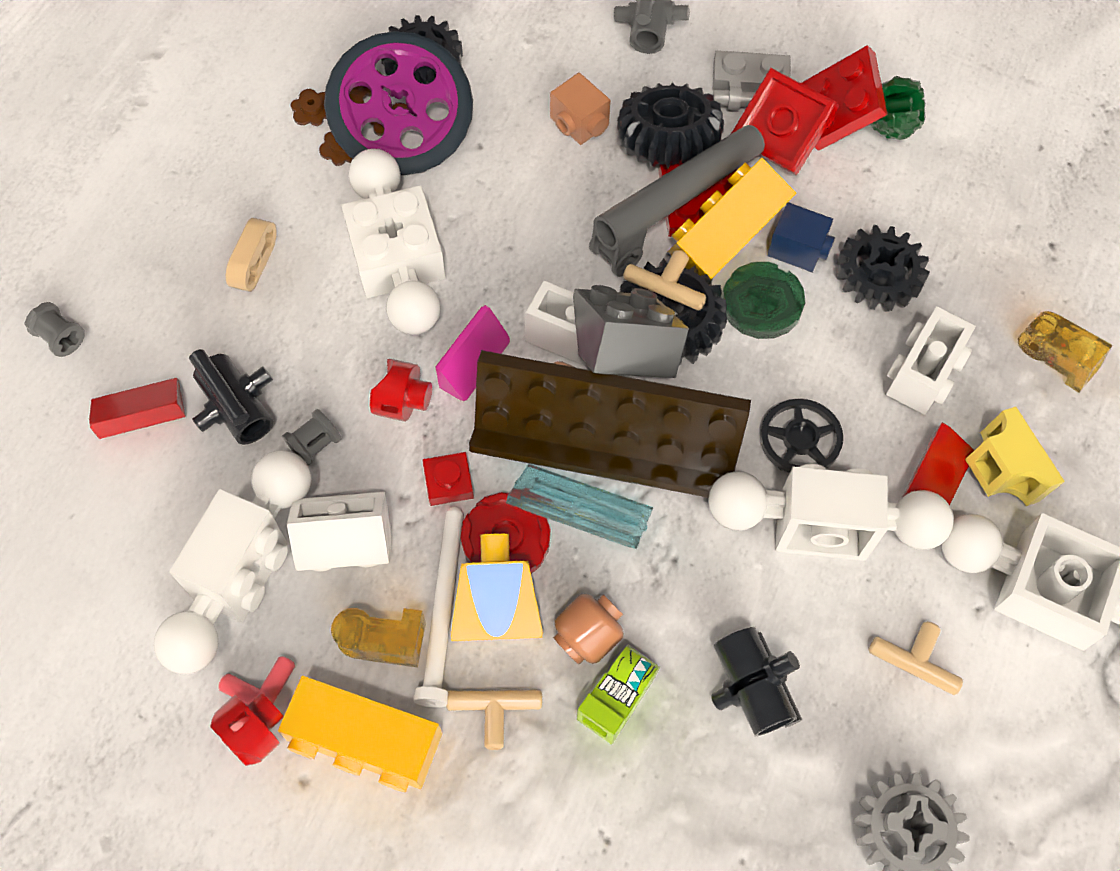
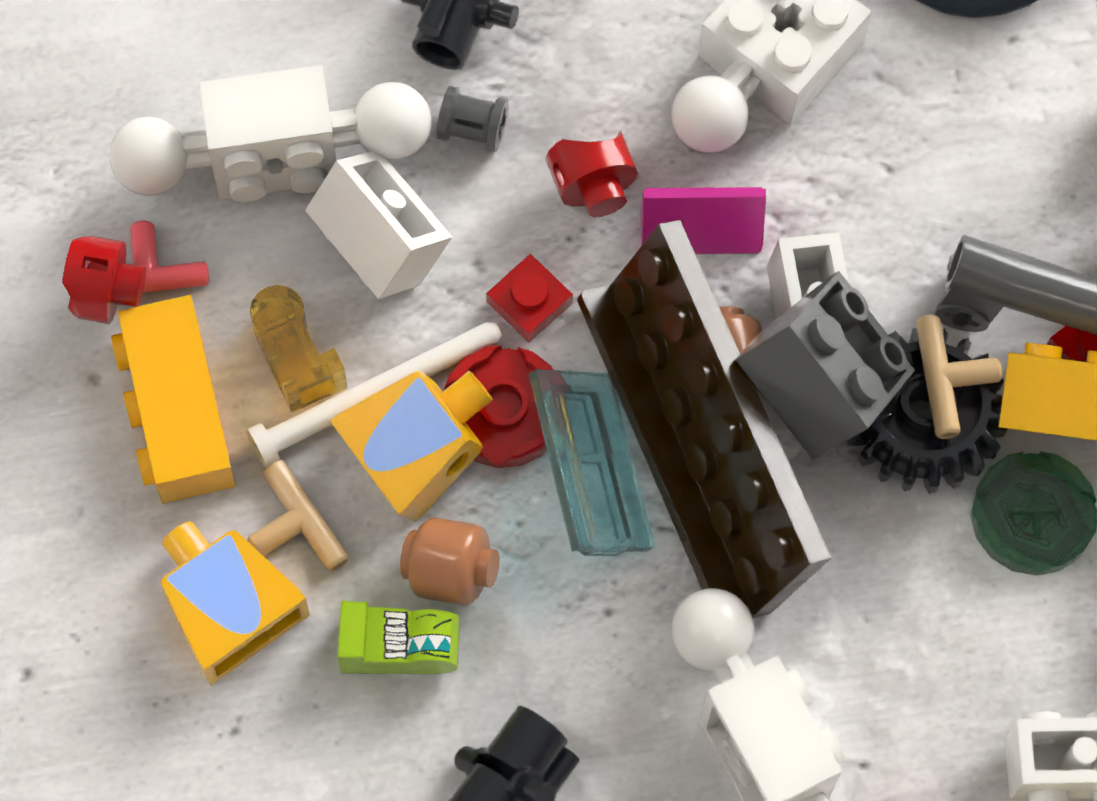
camera: 55 degrees right, 5 degrees up
(519, 786) = (227, 598): none -> yellow torso
(801, 434) = (870, 666): black wheel -> none

